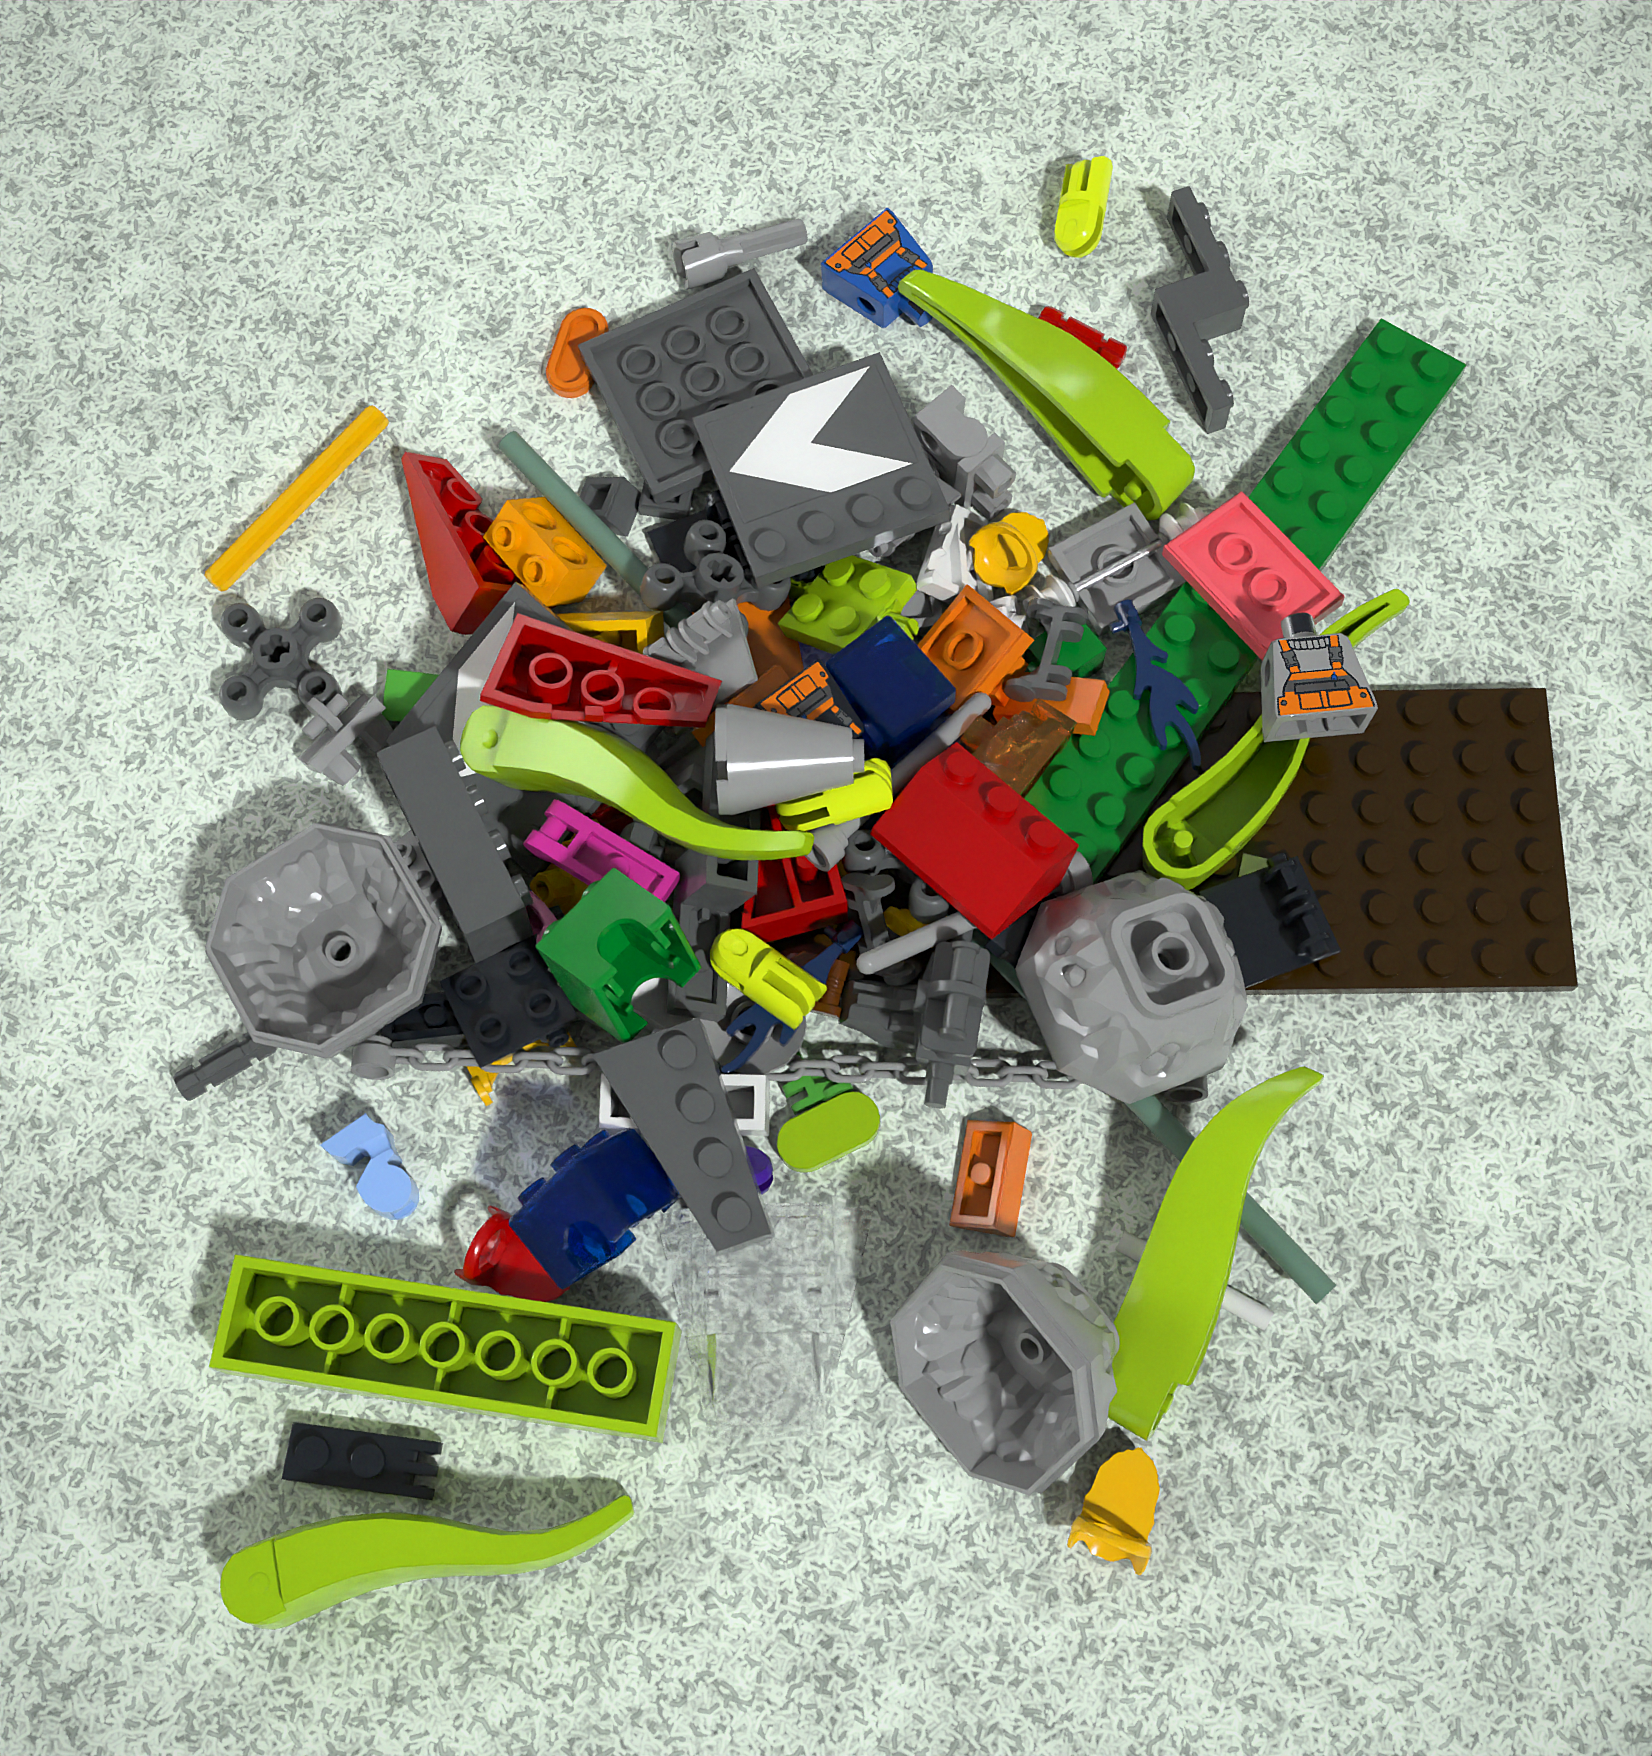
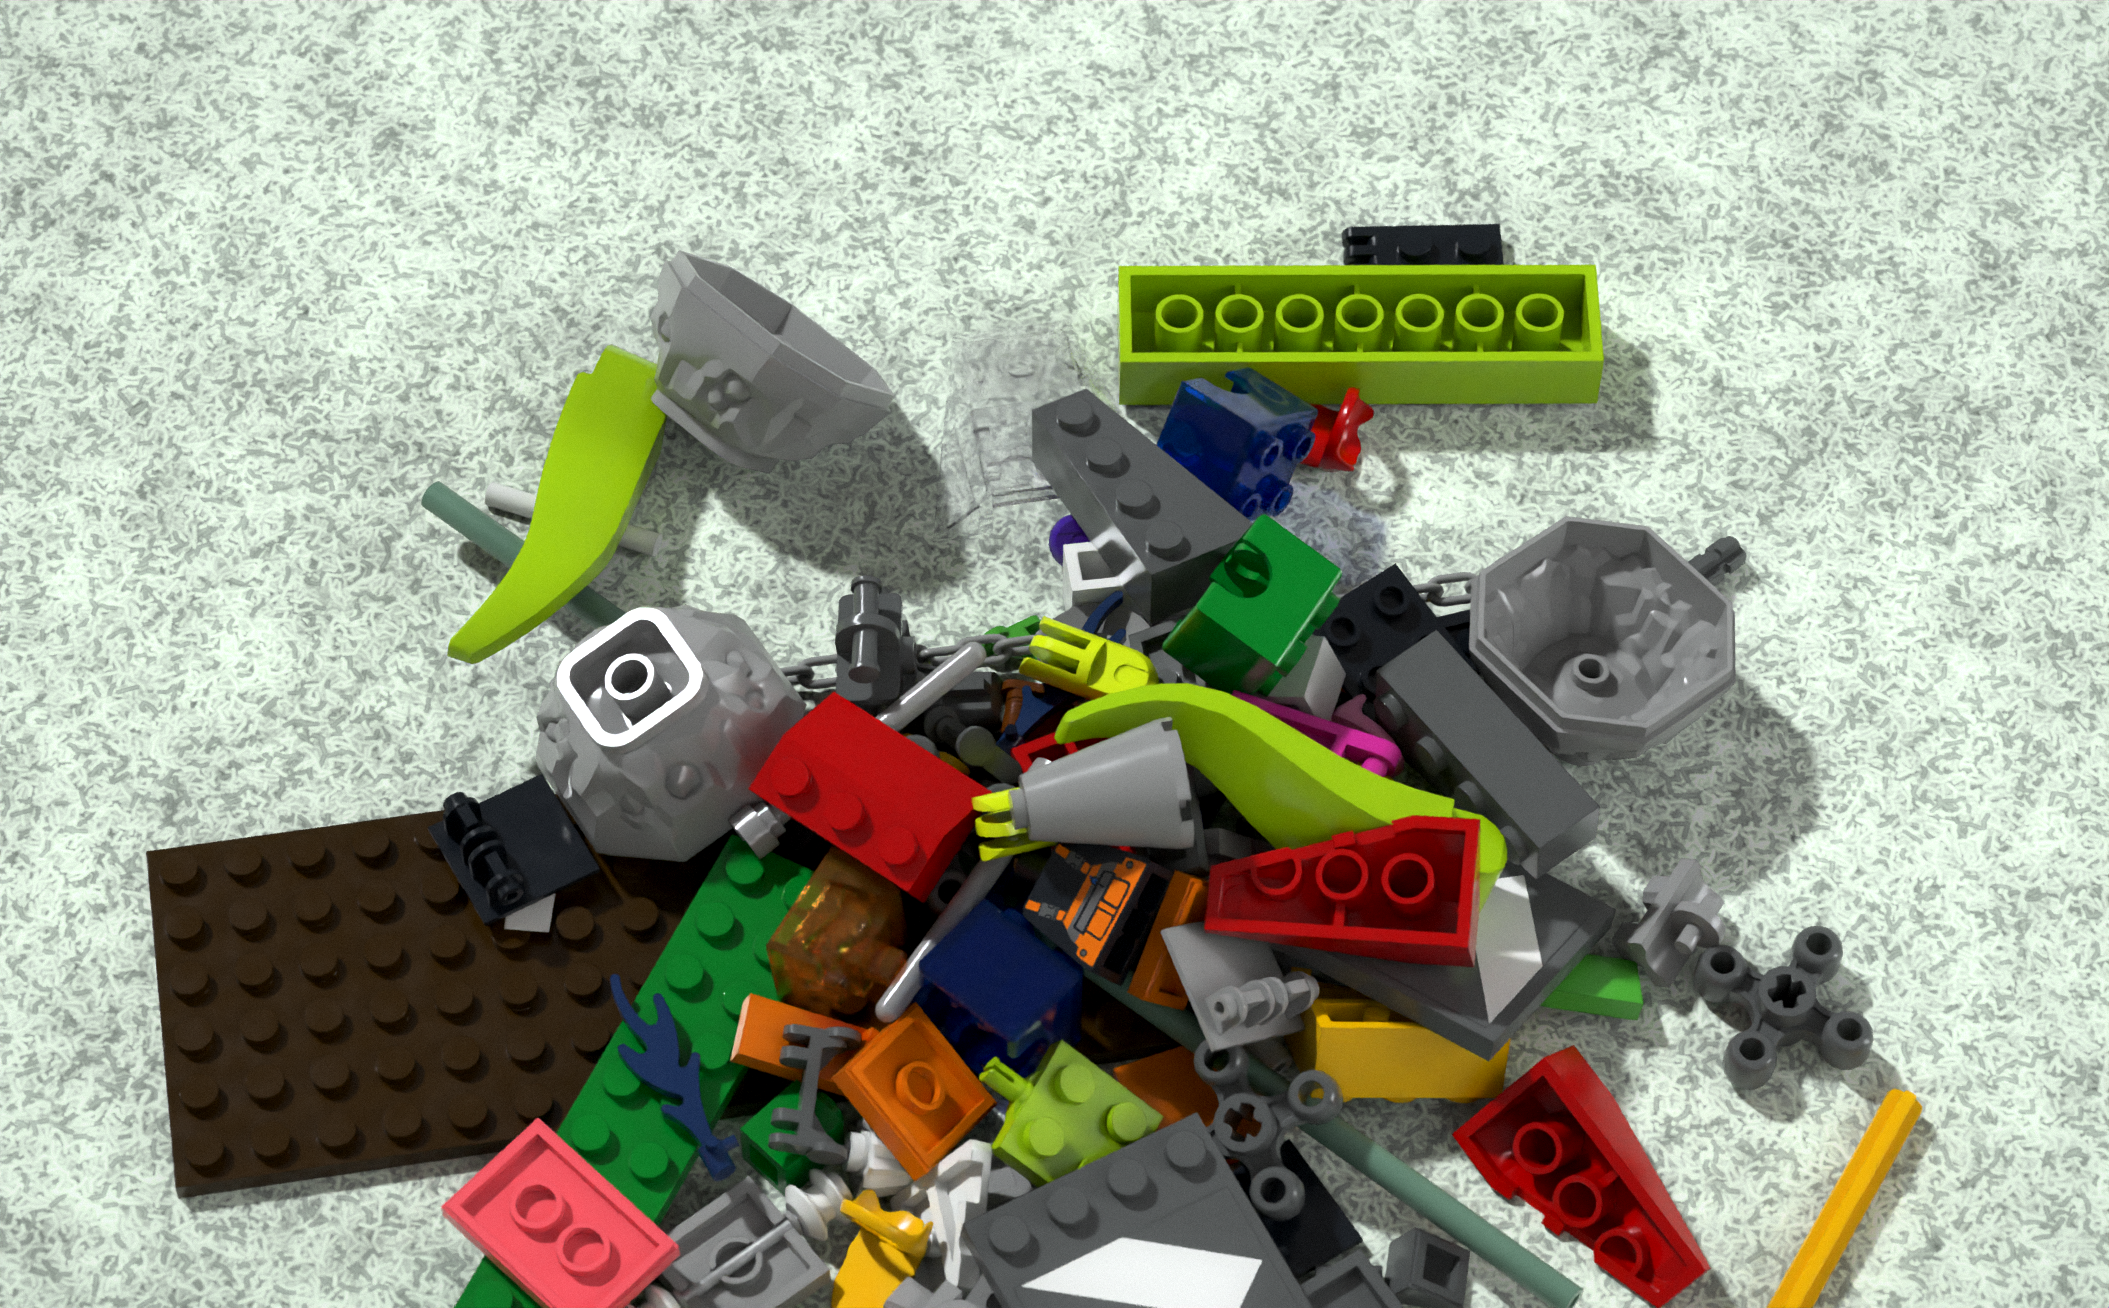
camera: 165 degrees right, 15 degrees down
(351, 1555) = (1355, 172): lime animal -> none
(383, 1183) = (1470, 483): light blue leg -> none
(544, 551) = (1481, 1176): light orange brick -> none
(828, 1132) = (996, 598): lime tile -> none
(991, 1177) = (806, 583): orange slope -> none
(1120, 1510) = (628, 299): yellow piece -> none
(1237, 795) = (557, 946): lime animal -> none
(1313, 685) = (484, 1034): torso -> none

